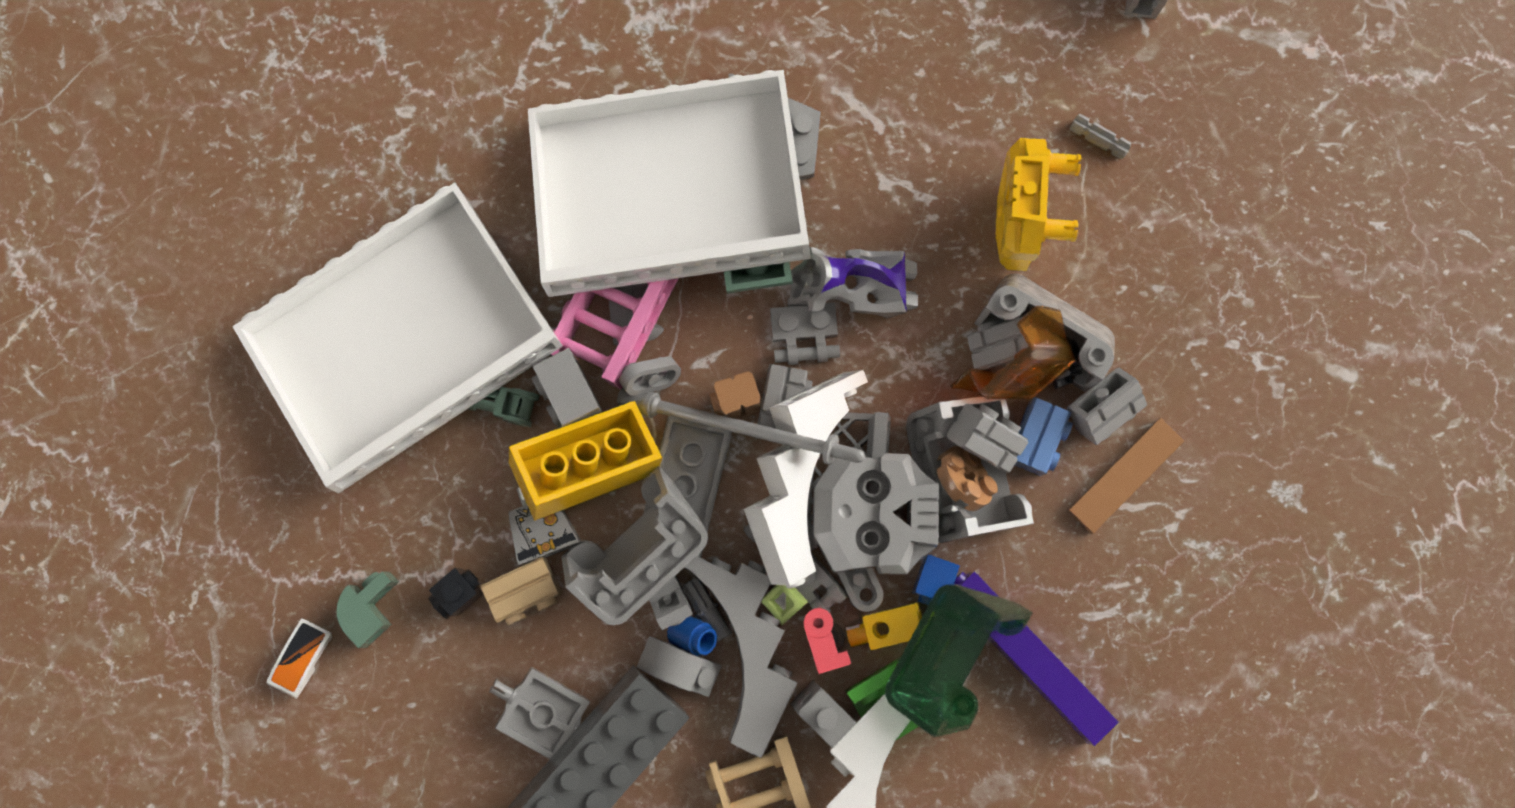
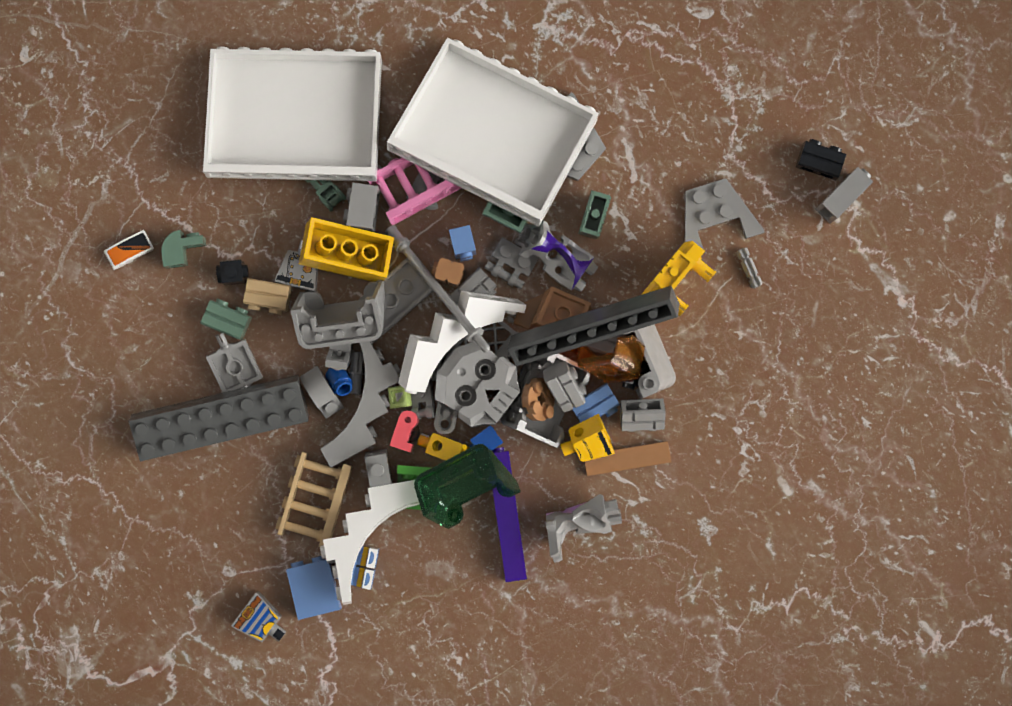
camera: 30 degrees right, 5 degrees up
(490, 659) = (226, 320): none -> sand green brick
(649, 375) = (412, 229): light grey plate -> none
(727, 347) = (463, 243): none -> medium blue brick
(867, 199) = (594, 215): none -> sand green brick
(910, 354) = (551, 307): none -> medium nougat piece
(977, 329) = (594, 326): none -> dark grey brick
(1003, 90) = (715, 205): none -> light grey wing
(1065, 485) = (588, 440): none -> yellow torso
(1130, 588) = (588, 517): none -> light grey hips

